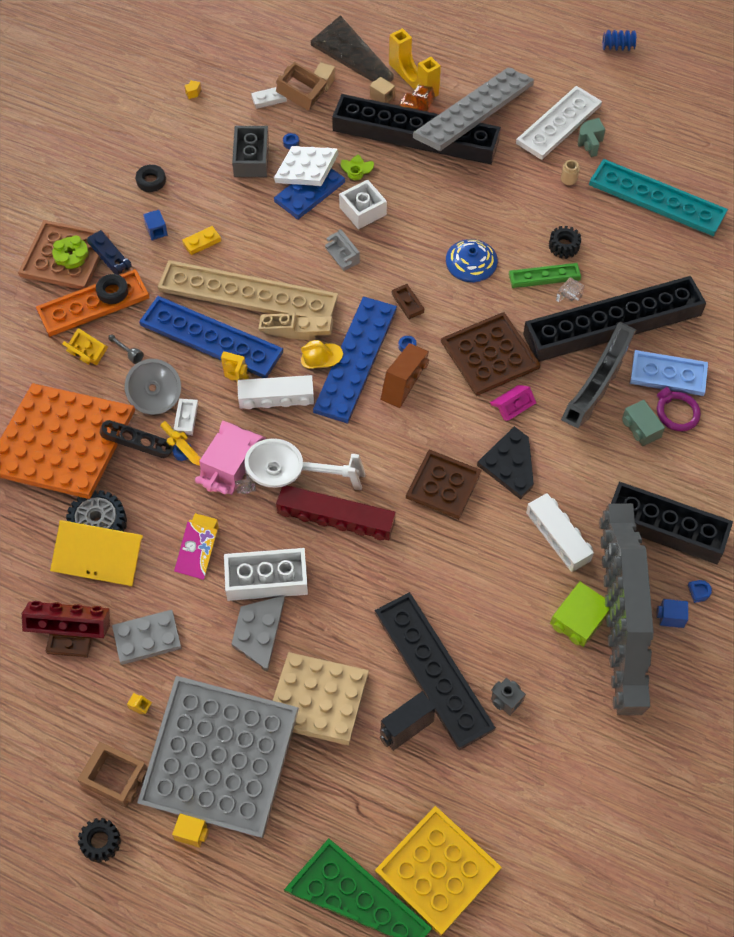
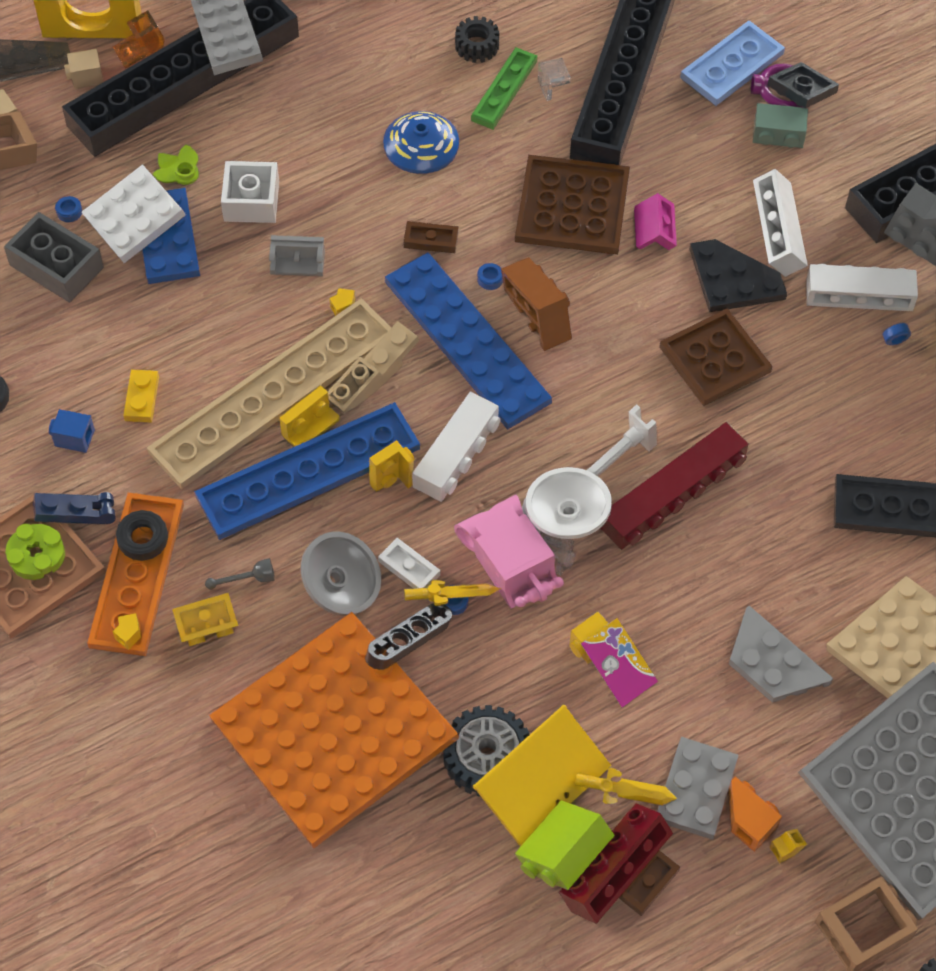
camera: 55 degrees left, 0 degrees up
(51, 317) = (128, 630): none -> yellow piece
(56, 586) = (564, 845): none -> lime brick
(116, 598) = (626, 789): none -> yellow sword
(143, 672) = (751, 816): none -> orange slope
(241, 316) = (308, 418): none -> yellow bracket
(265, 574) = (710, 604): white brick -> none
(318, 355) = (437, 370): yellow piece -> none
(331, 286) = (342, 300): none -> yellow piece
(541, 570) = (896, 334): none -> blue tile
(566, 461) = (780, 223): none -> white brick
(583, 404) = (688, 108): dark grey arch -> none
(680, 415) = (803, 85): none -> black plate

